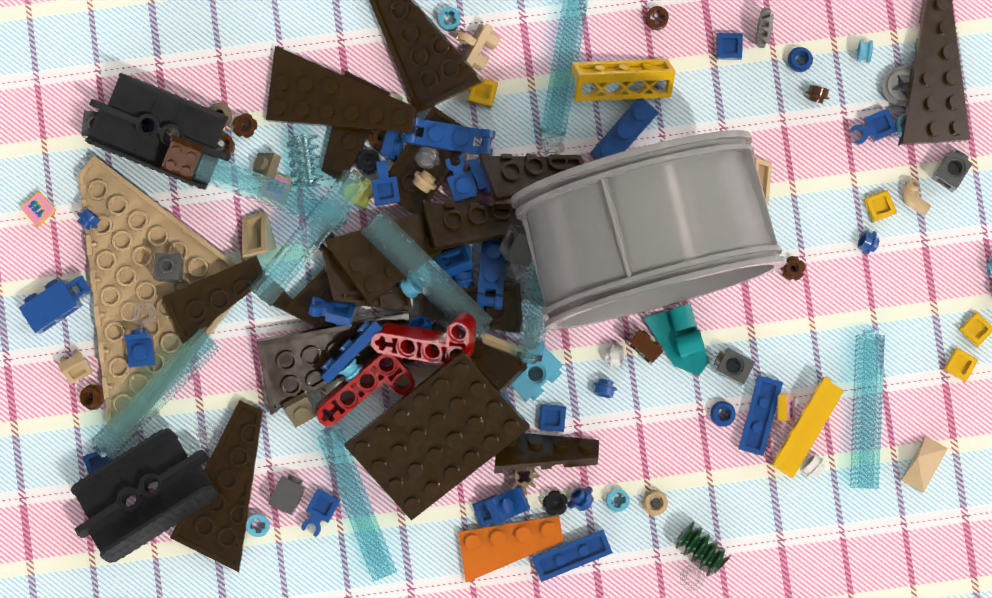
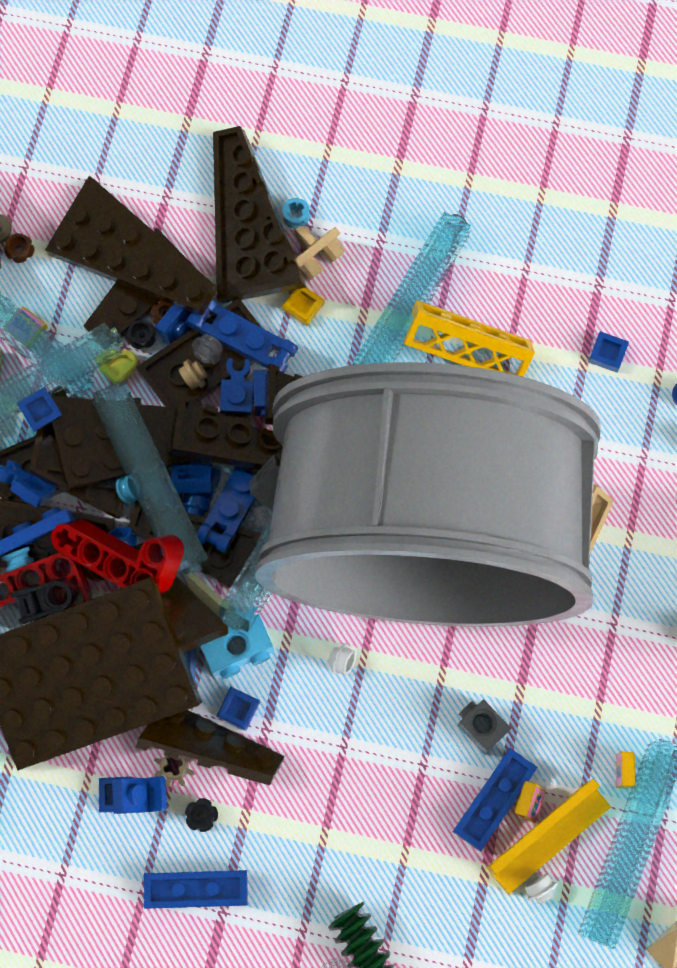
camera: 25 degrees right, 10 degrees down
(267, 164) = (24, 295): dark tan plate -> none
(303, 161) = (66, 305): clear light blue piece -> none
(326, 253) = (39, 409): none -> blue tile
(383, 394) = (39, 600): none -> black piece
(385, 188) = (145, 366): blue plate -> none
(500, 545) = (116, 843): orange wing -> none
(581, 498) = (234, 821): blue plate -> none
(604, 388) = (314, 695): blue plate -> none
(623, 506) = (276, 830): medium azure bush -> none
(645, 346) = (382, 662): reddish brown piece -> none
(662, 499) = (313, 857): tan plate -> none
(663, 13) = (543, 290): reddish brown bush -> none
(680, 338) = (429, 668): teal panel -> none
(731, 413) = (456, 772): blue plate -> none
(764, 27) = (657, 341): light grey gear -> none
(799, 268) = (597, 642): reddish brown plate -> none
(845, 360) = (625, 770): none -> yellow tile

